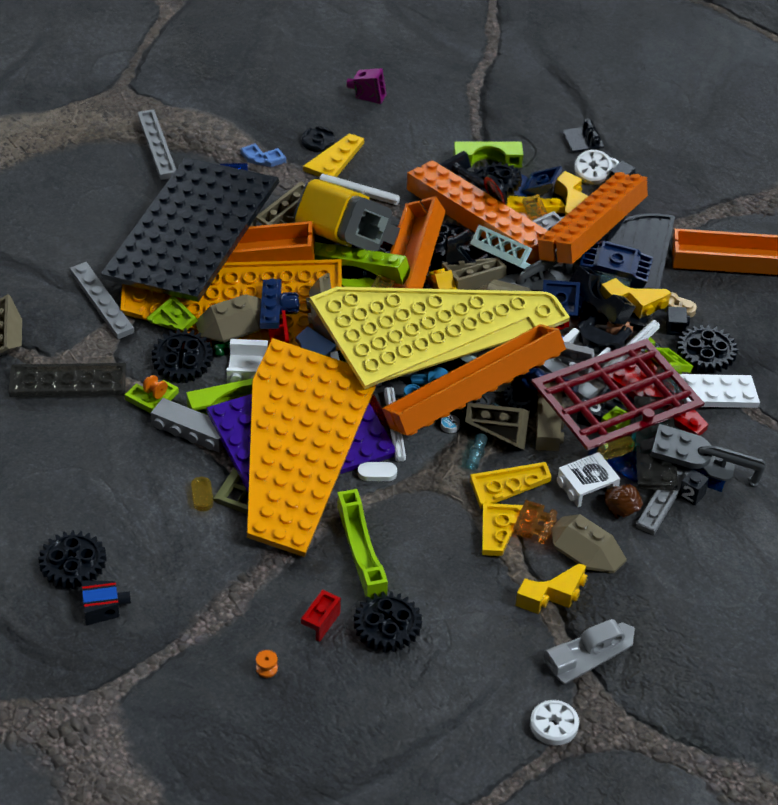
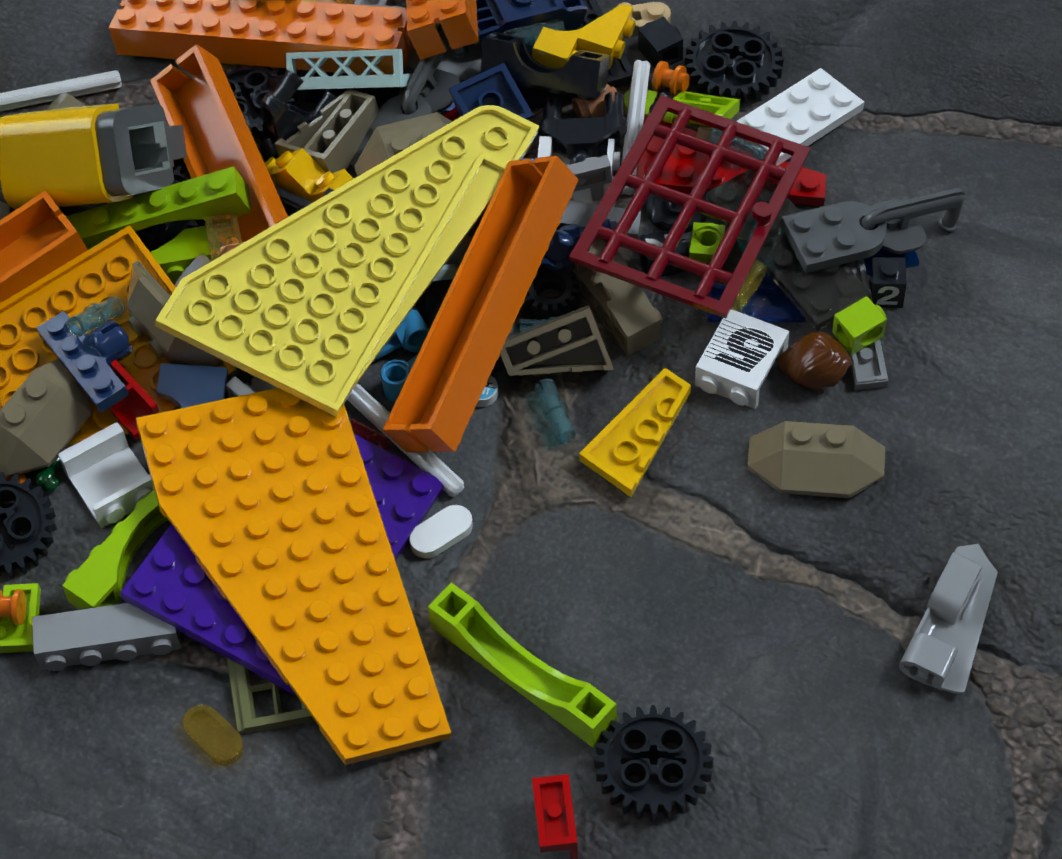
camera: 30 degrees left, 10 degrees up
(291, 286) = (95, 316): none -> clear light blue pin
(498, 527) = (679, 510): yellow wing -> none
(528, 520) = (712, 471): clear orange plate -> none
(546, 730) = (1000, 782): white wheel -> none
(560, 590) = (848, 552): yellow arch -> none
(658, 495) = (859, 325): none -> lime brick
(666, 338) = (676, 79): none -> orange wheel

